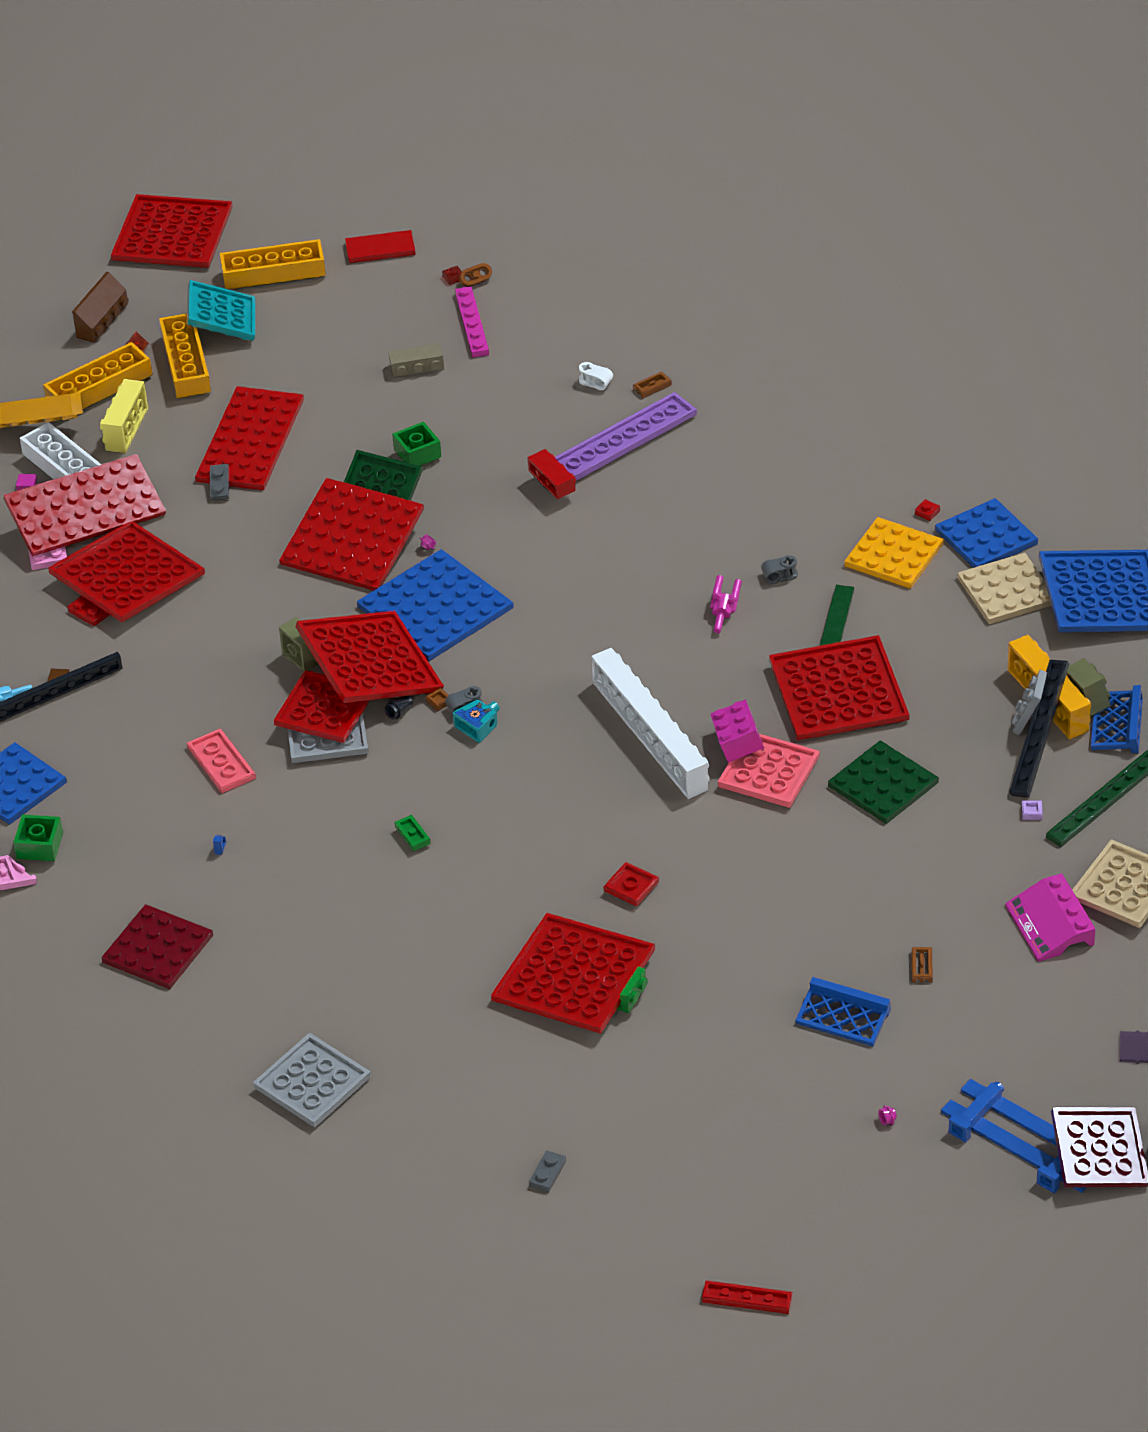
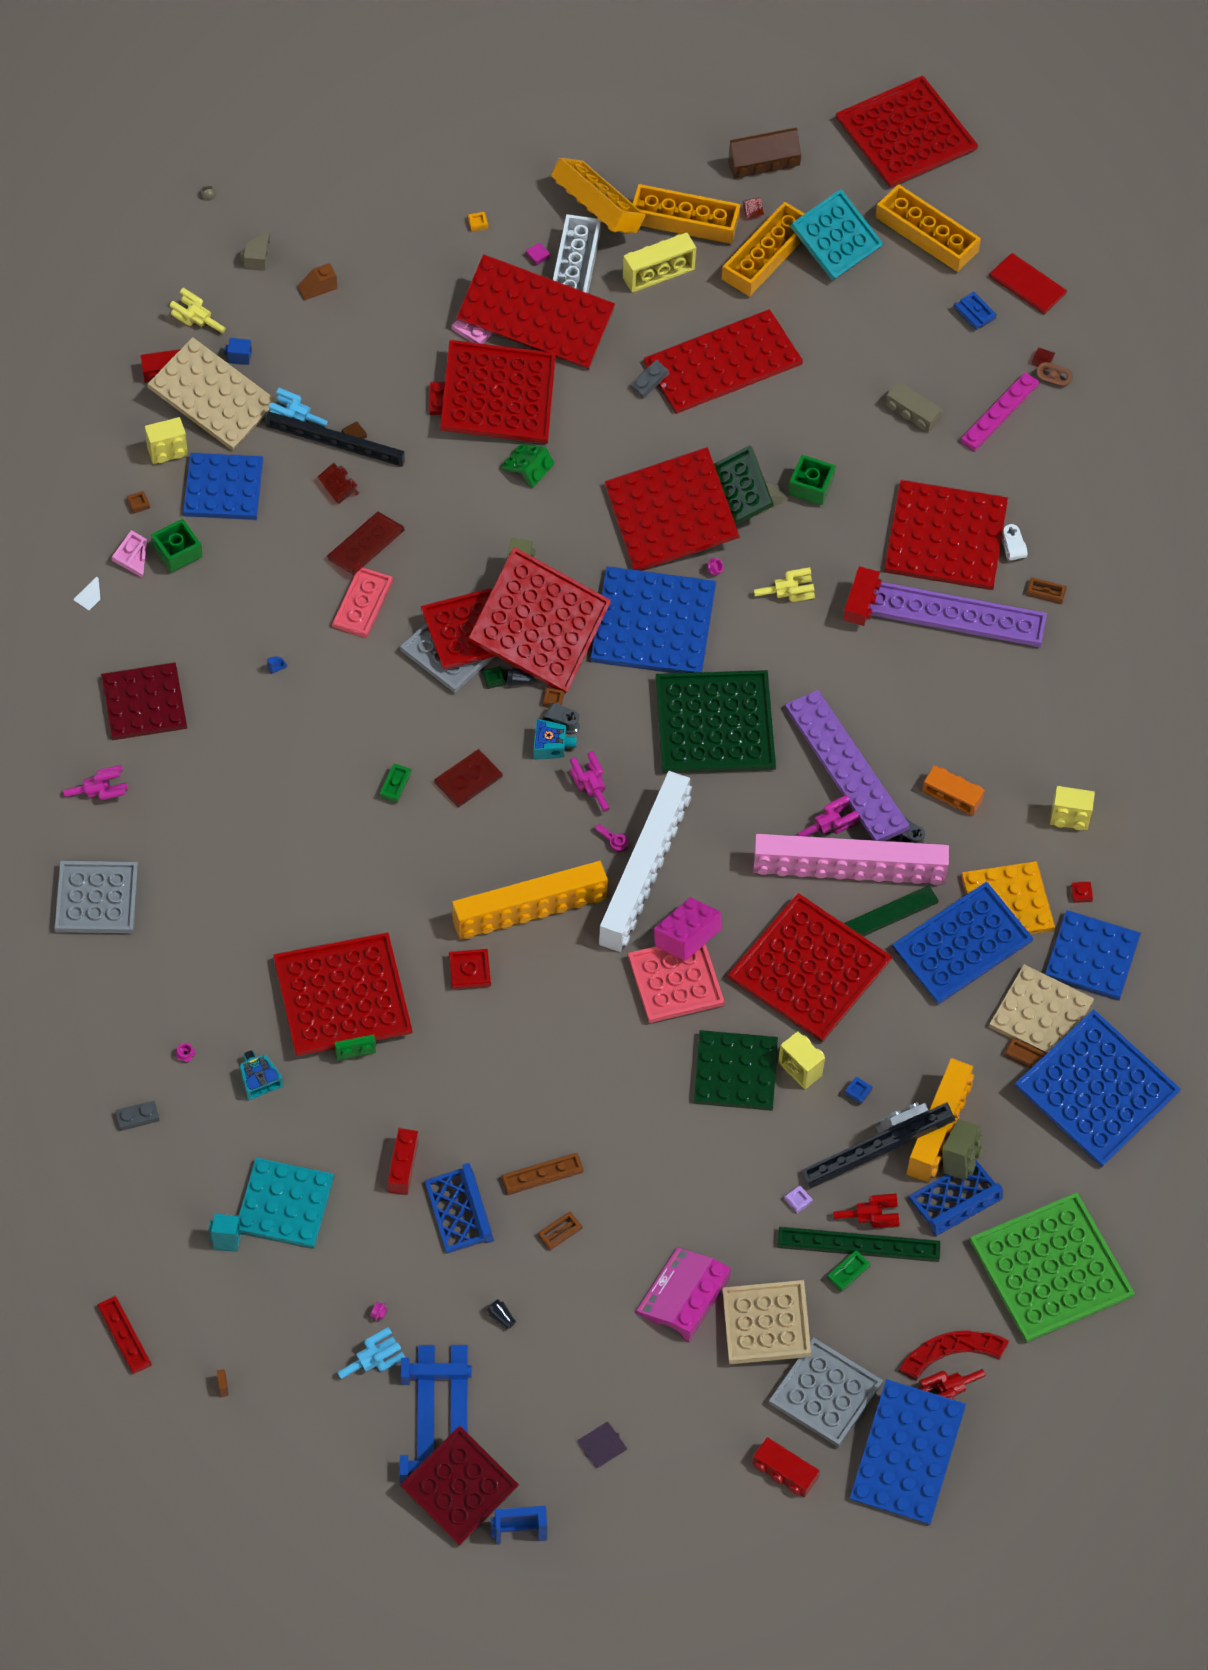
camera: 45 degrees right, 15 degrees up
(14, 925) = (89, 595): none -> white sticker
(95, 711) = (337, 482): none -> clear red bracket
(170, 726) = (365, 543): none -> clear red tile
(208, 589) = (530, 461): none -> green bracket
(208, 1014) = (100, 785): none -> dark pink plant
(371, 284) = (975, 310): none -> blue plate
(380, 723) = (493, 677): none -> dark green tile
(454, 789) = (468, 778): none -> clear red tile
(495, 510) = (789, 586): none -> light yellow plant
(520, 1104) = (185, 1047): none -> dark pink plate
(540, 715) = (591, 779): none -> dark pink plant
(544, 407) = (946, 534): none -> red plate
(564, 619) = (715, 721): none -> dark green plate
(593, 1068) = (259, 1075): none -> torso
(609, 735) = (617, 842): none -> dark pink plate
(612, 808) = (529, 900): none -> light orange brick
(687, 567) = (847, 766): none -> medium lavender plate
(723, 1167) = (225, 1232): none -> teal brick
(727, 1121) = (285, 1202): none -> teal plate
(767, 1021) = (403, 1161): none -> red brick
(770, 525) = (953, 790): none -> orange brick
(771, 609) = (851, 859): none -> bright pink brick
(856, 468) = (1072, 808): none -> light yellow brick
(858, 1253) = (222, 1383): none -> dark orange tile
(860, 946) = (542, 1173): none -> dark orange tile
(907, 591) = (962, 942): none -> blue plate
(918, 733) = (801, 1059): none -> light yellow brick
(927, 1138) = (374, 1355): none -> medium azure plant
(962, 1040) = (501, 1314): none -> black cone
(973, 721) = (858, 1090): none -> blue plate
(1034, 616) = (1023, 1053): none -> dark orange tile
(1087, 770) = (872, 1211): none -> red plant
(1123, 814) = (848, 1271): none -> green plate

